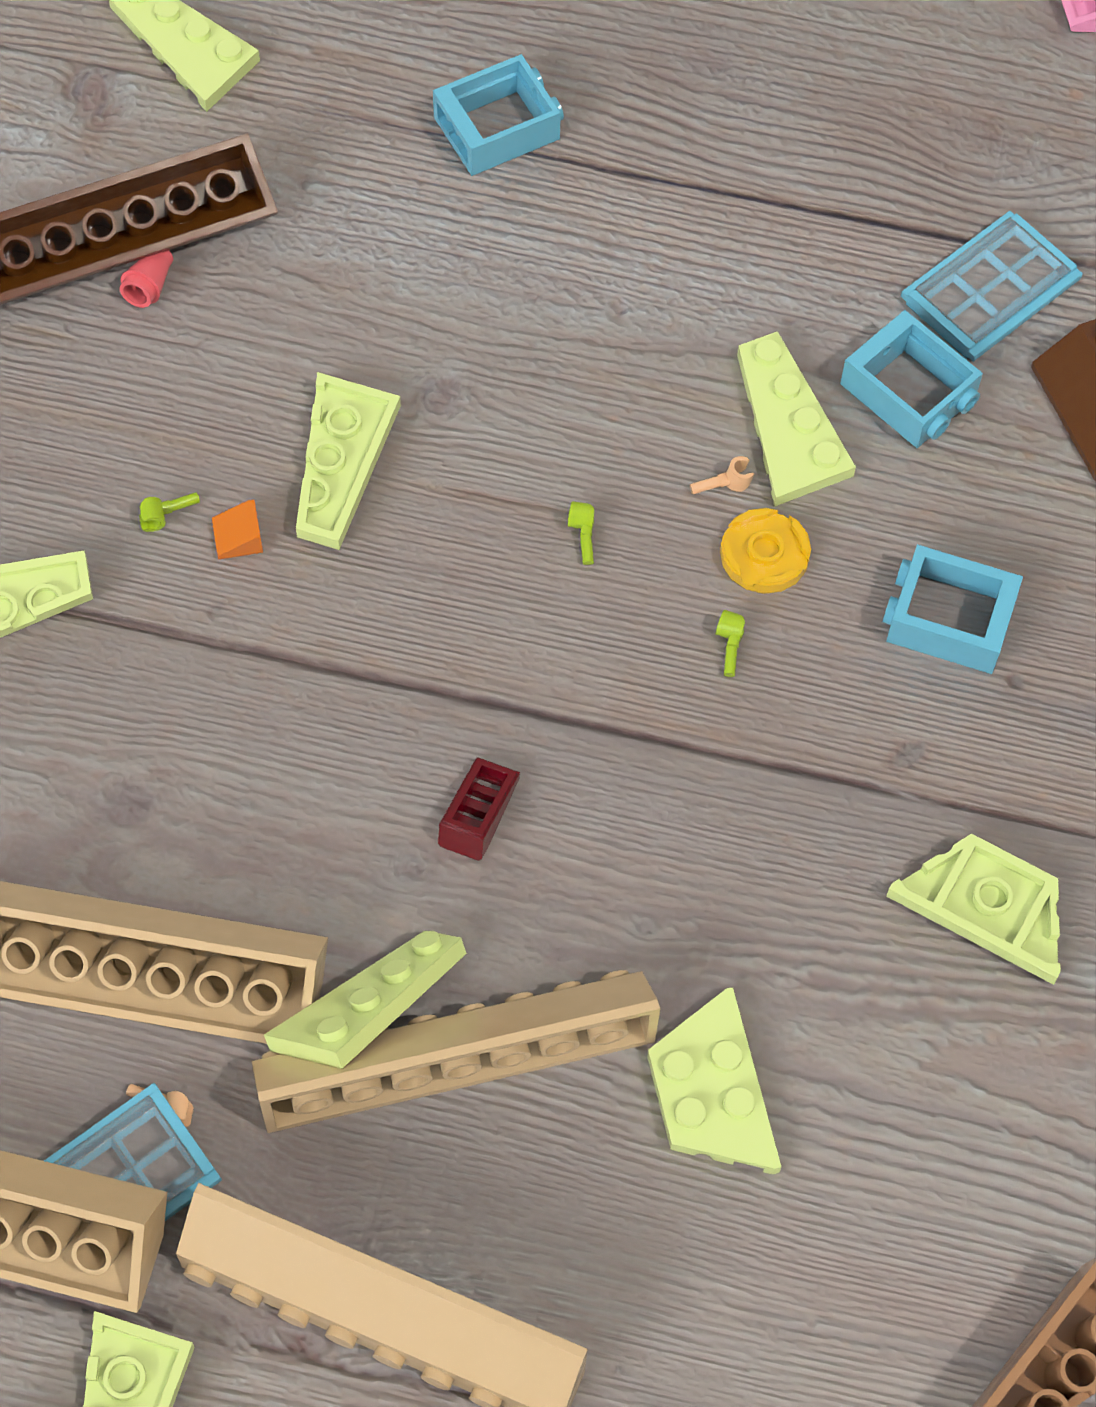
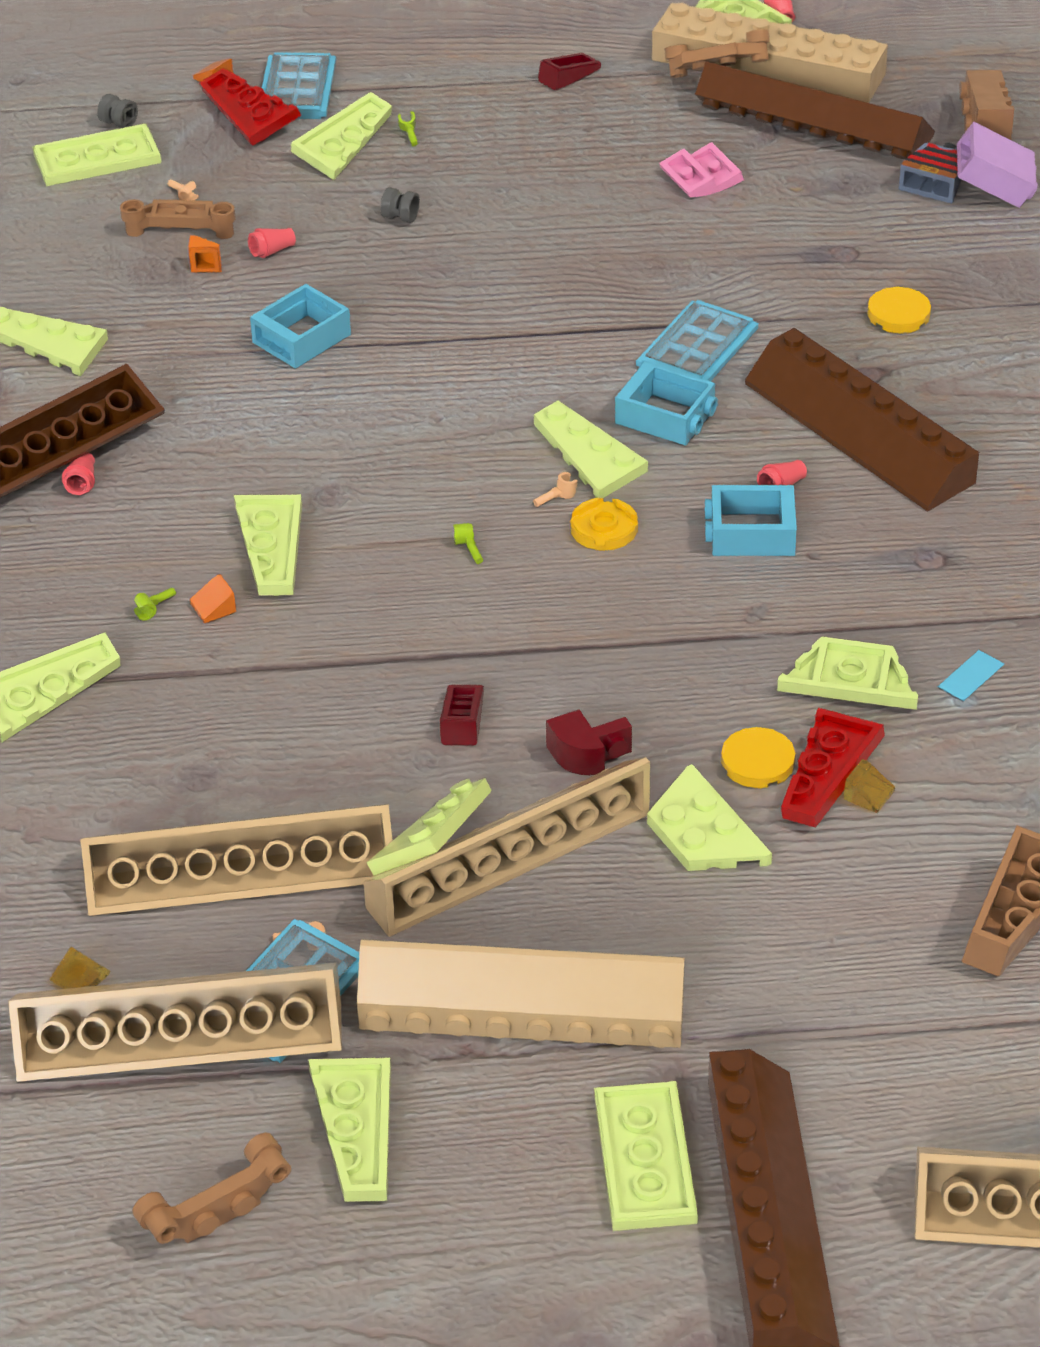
camera: 15 degrees left, 20 degrees down
(604, 920) = (584, 748): none -> dark red brick
(731, 627) = (600, 570): lime hand -> none
(822, 999) = (758, 757): none -> yellow tile
(915, 1034) = (831, 754): none -> red wing
(944, 1097) = (868, 787): none -> clear yellow slope
(1015, 545) = (782, 473): none -> coral cone

